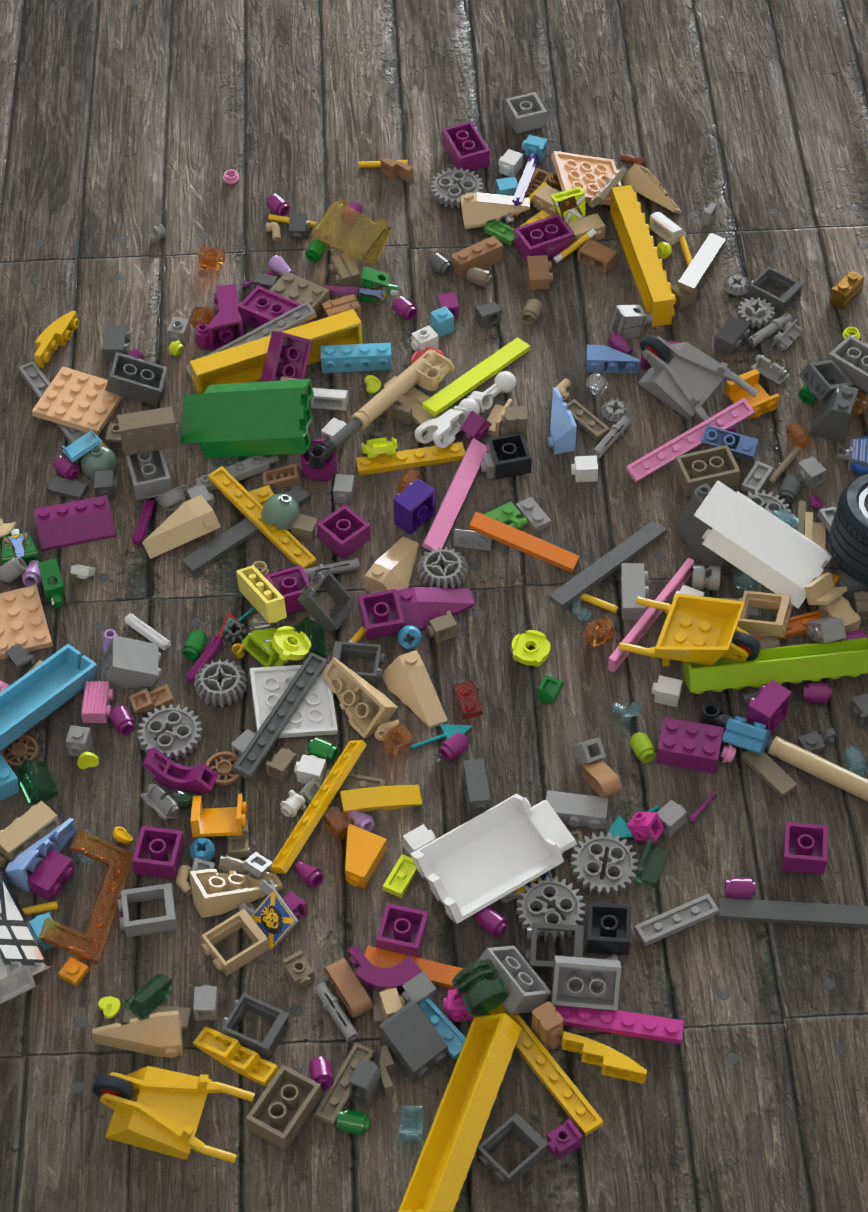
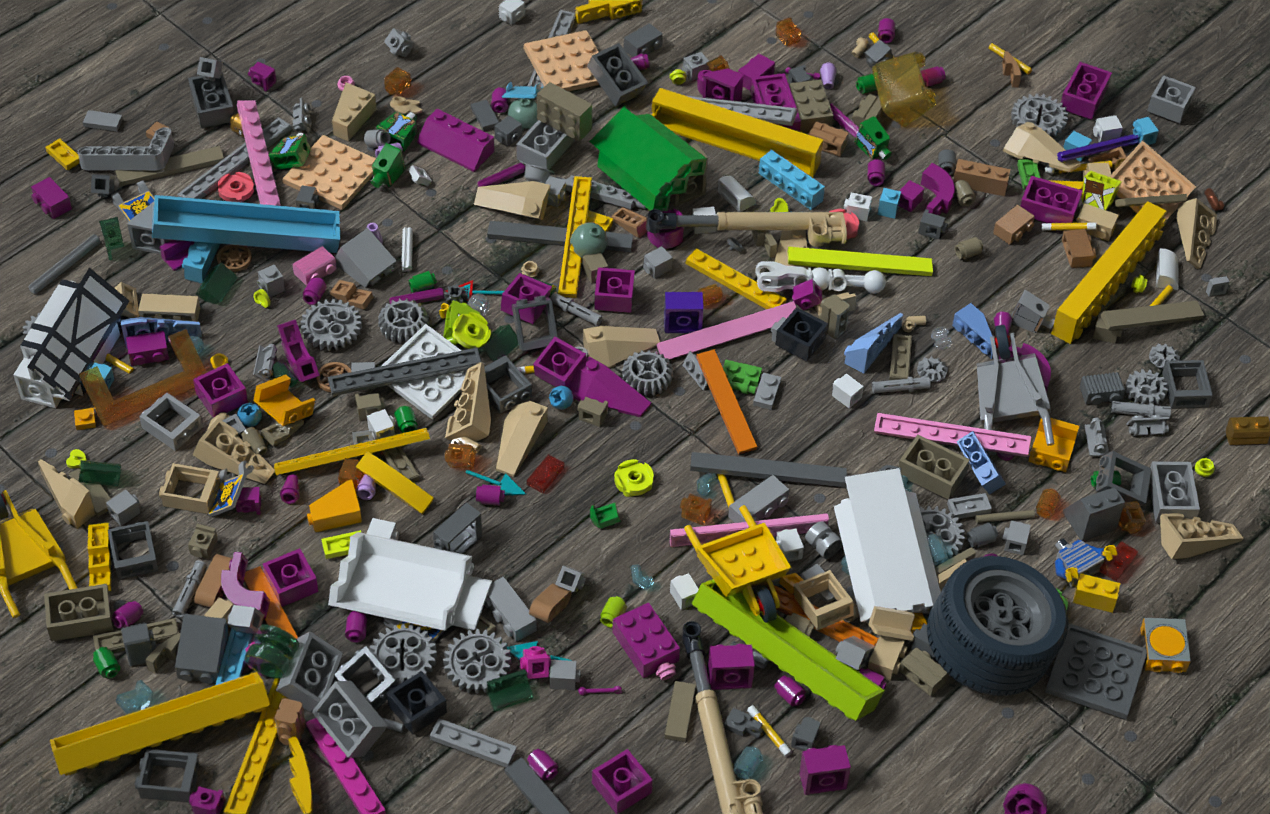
camera: 45 degrees right, 0 degrees up
(257, 865) = (265, 453): light grey plate -> none
(261, 594) = (497, 282): light yellow brick -> none
(286, 357) = (725, 141): magenta slope -> none
(292, 804) = (339, 437): white brick -> none
(379, 446) = (722, 253): neon yellow plate -> none
(462, 284) = (941, 185): none -> magenta arch
(746, 735) = (688, 668): dark azure brick -> none
(838, 730) = (769, 731): none -> yellow bar

